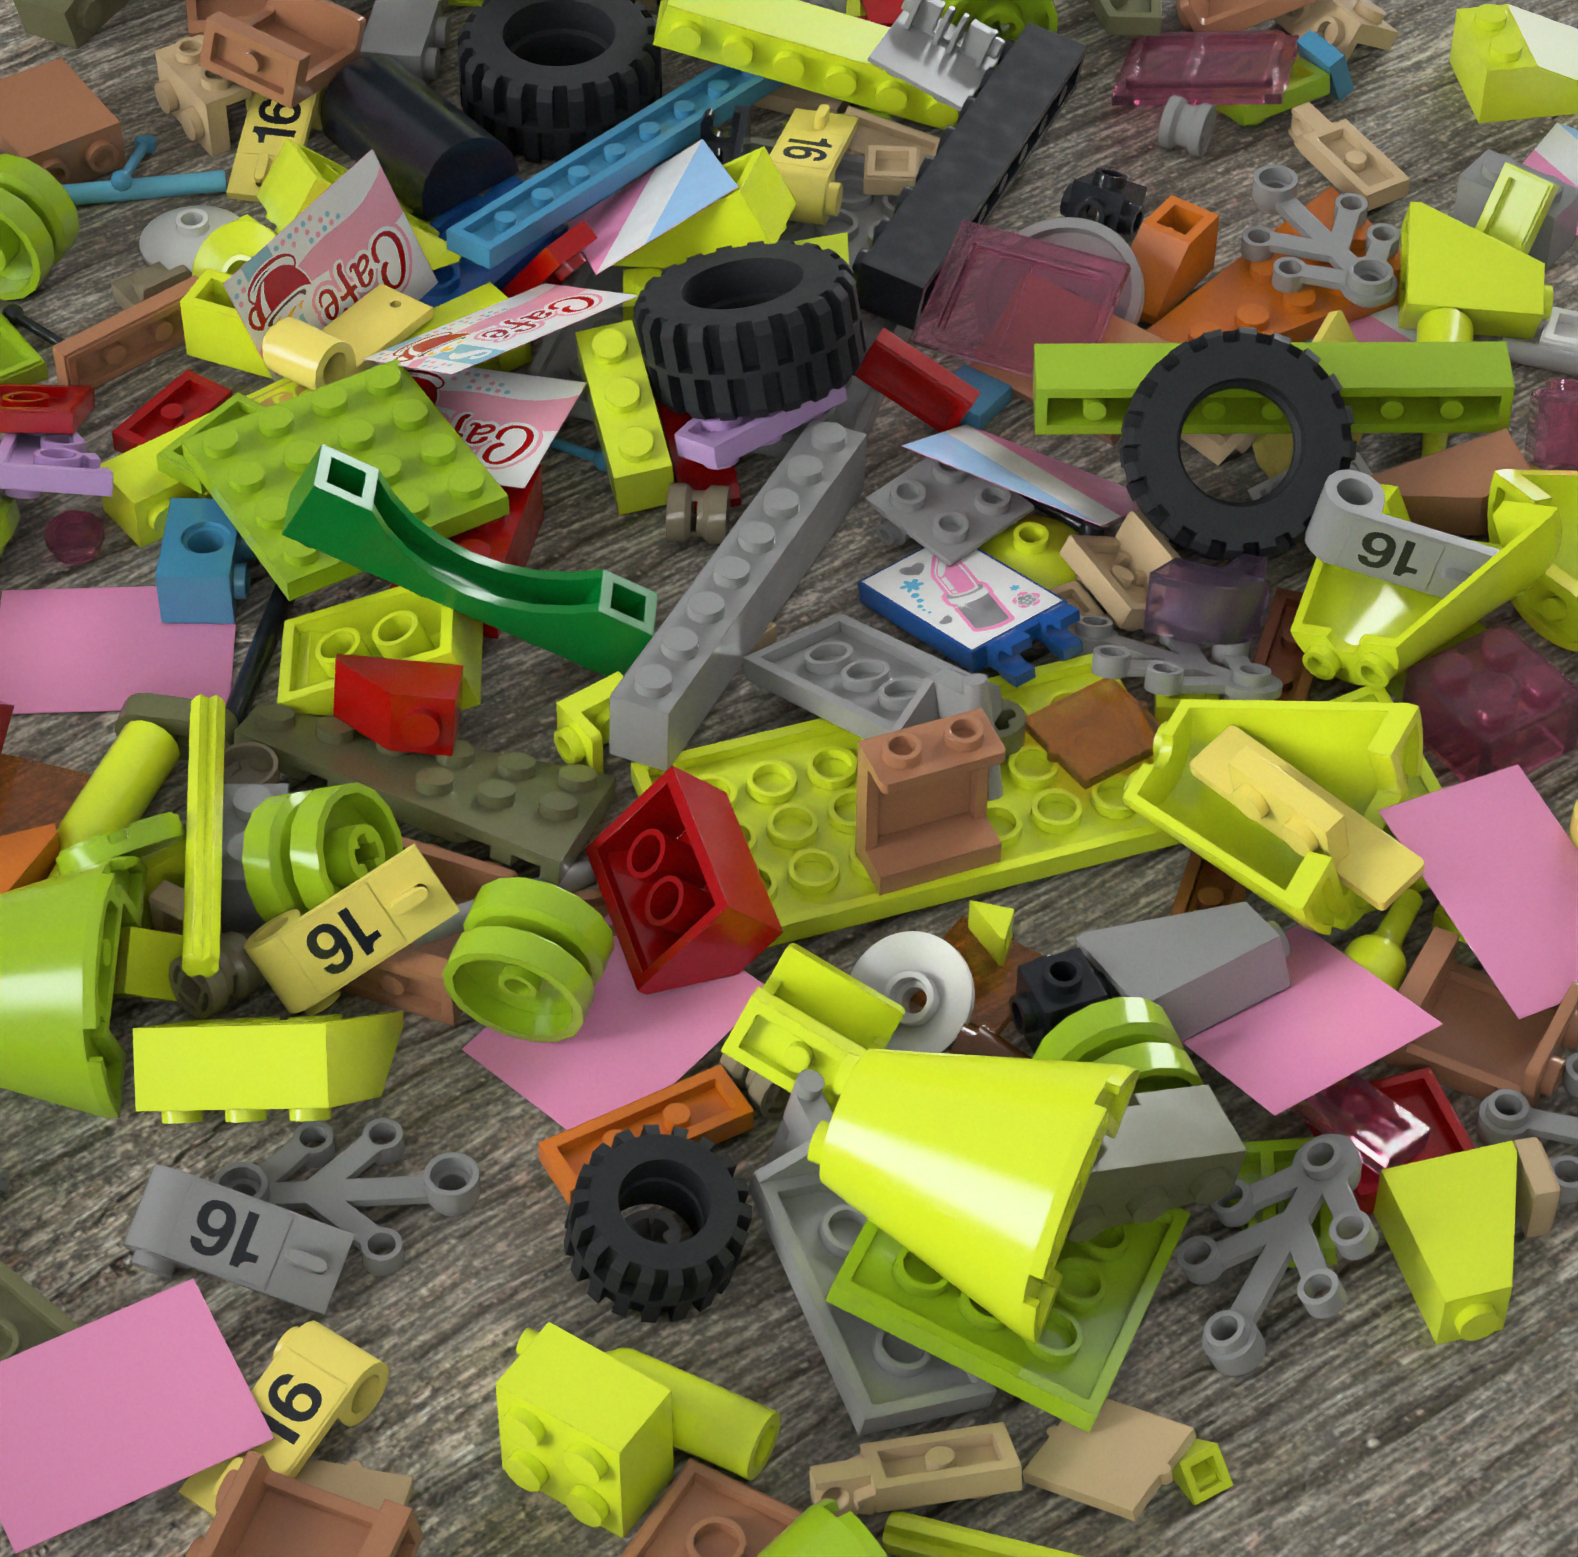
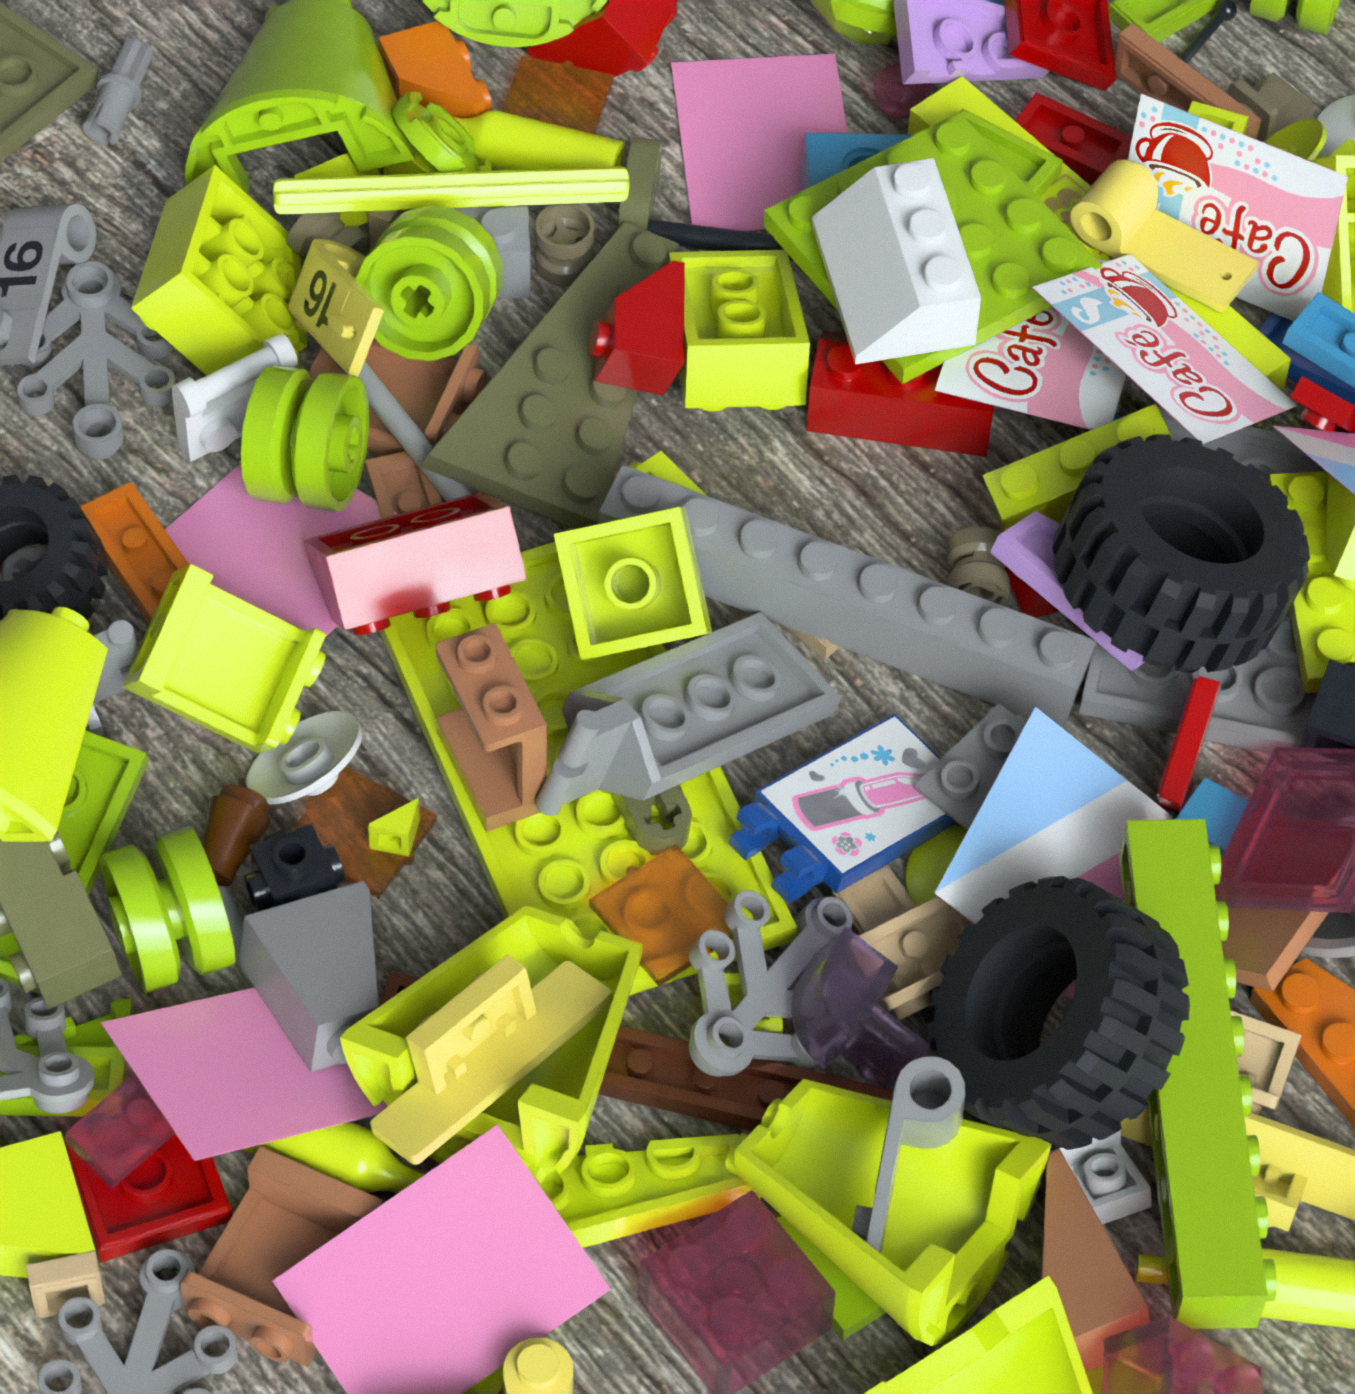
camera: 85 degrees right, 10 degrees up
(358, 519) = (784, 335): green arch -> none
(428, 444) = (898, 264): none -> white slope
(442, 1040) = (214, 408): none -> white plate
(760, 692) = (633, 583): none -> neon yellow brick

